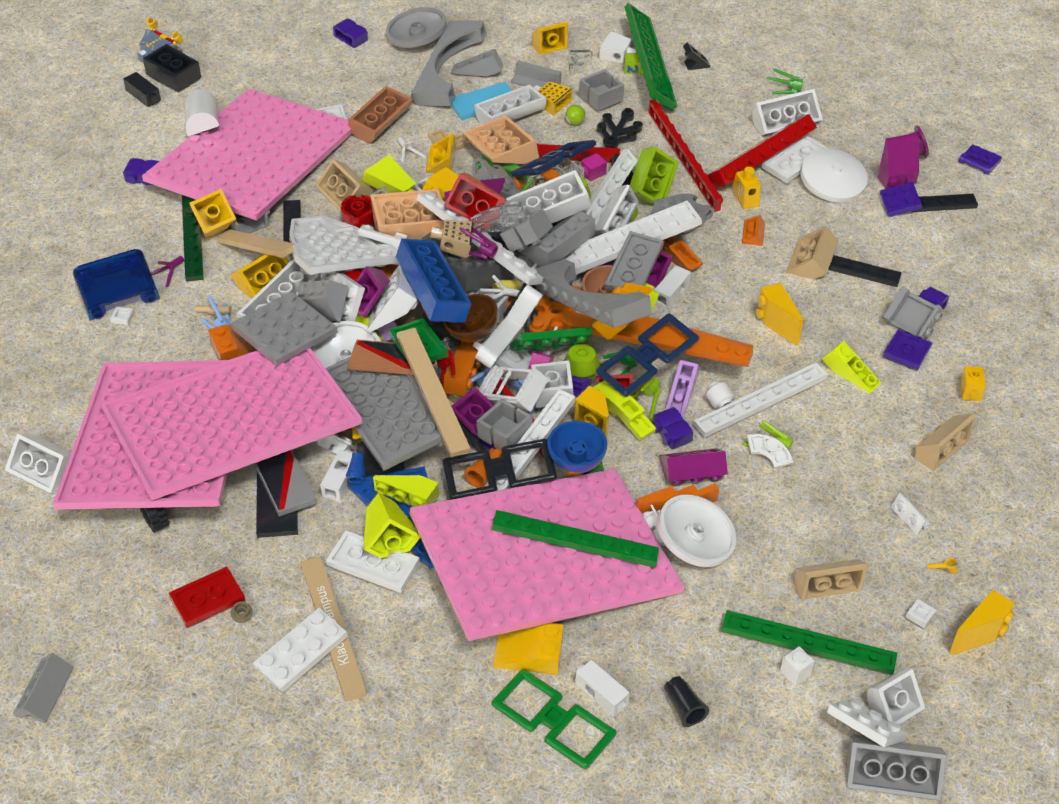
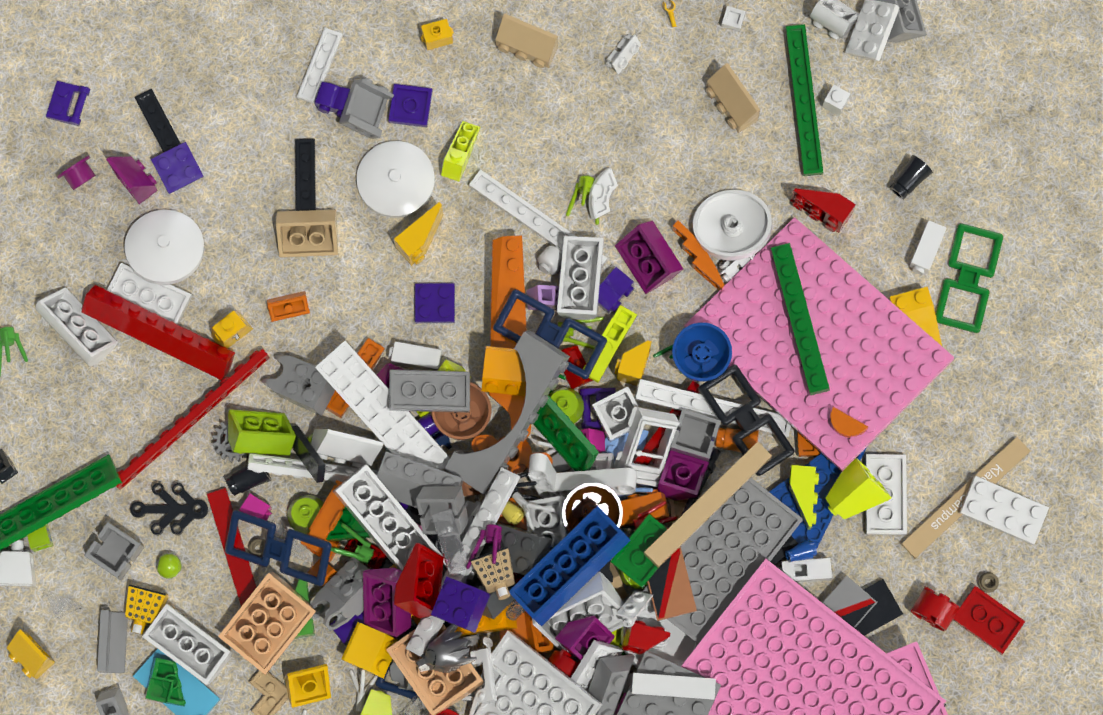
camera: 110 degrees left, 30 degrees up
(242, 549) = (935, 609): none -> red brick
(294, 327) = (673, 686): none -> white tile
(349, 329) = (642, 638): none -> red slope
(379, 329) = (634, 607): none -> white hinge
(412, 206) = (446, 652): none -> flat silver piece
(439, 206) = (460, 604): none -> dark purple brick
(450, 521) = (846, 425): none -> orange tile
(488, 89) = (164, 683): none -> green slope
(611, 183) = (308, 455): none -> black tile
(679, 608) = (827, 207): none -> red slope
(693, 396) = (580, 277): none -> white brick
(715, 315) = (435, 303): none -> dark purple plate
(839, 320) = (395, 179): none -> white dish
(971, 309) = (319, 65): none -> white tile

